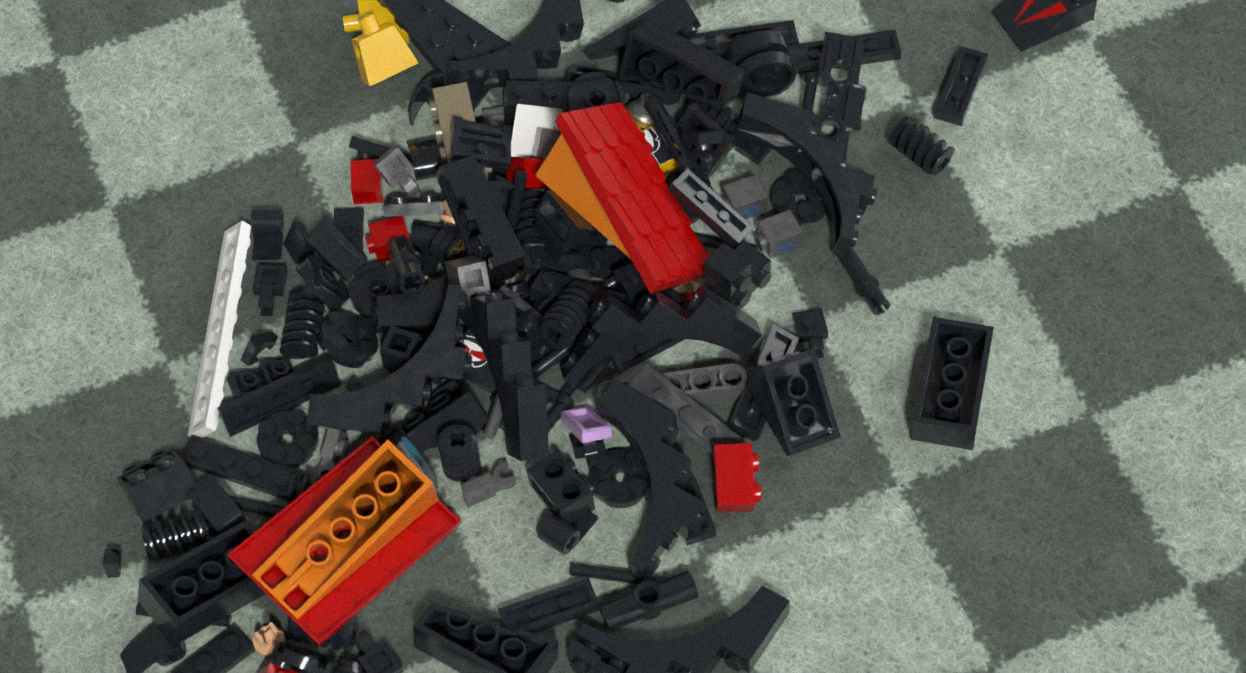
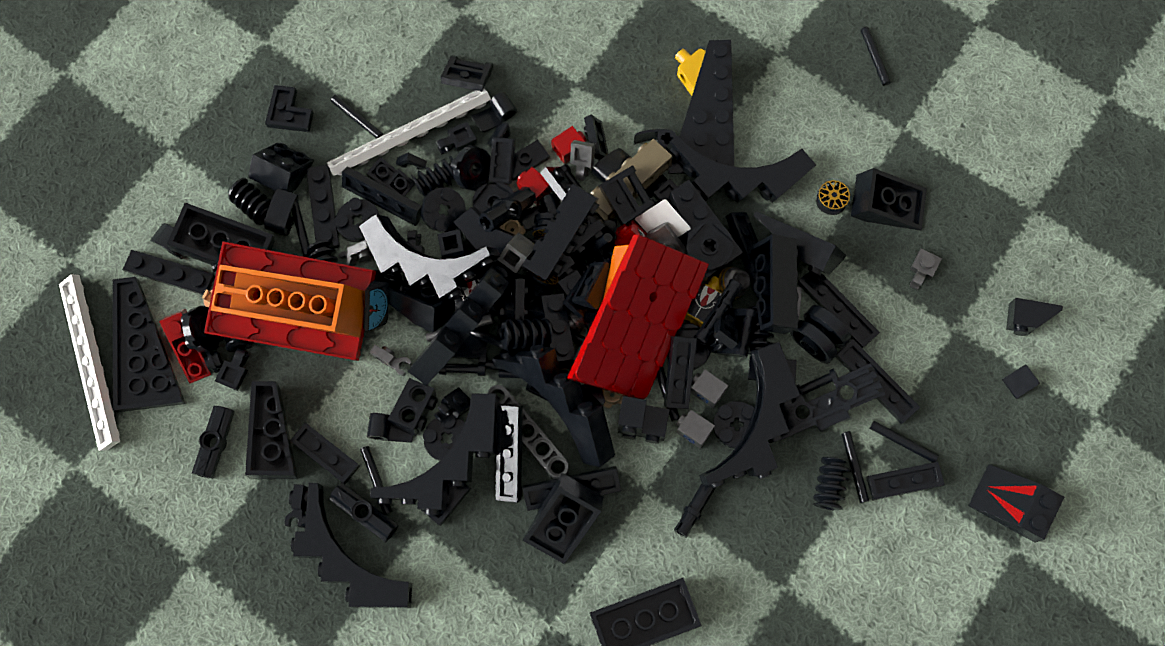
camera: 60 degrees right, 15 degrees up
(87, 451) = (283, 113): none -> black plate
(112, 561) = (218, 177): black tile -> none
(153, 377) = (356, 116): none -> black bar
(197, 234) = (466, 74): none -> black plate
(380, 51) = (669, 89): yellow torso -> none
(459, 453) = (395, 329): black piece -> none
(586, 424) = (460, 397): lavender tile -> none
(734, 478) = (482, 514): red brick -> none
(811, 328) = (636, 494): black plate -> none
(919, 67) = (903, 441): none -> black bar
(934, 126) = (855, 467): none -> black bar

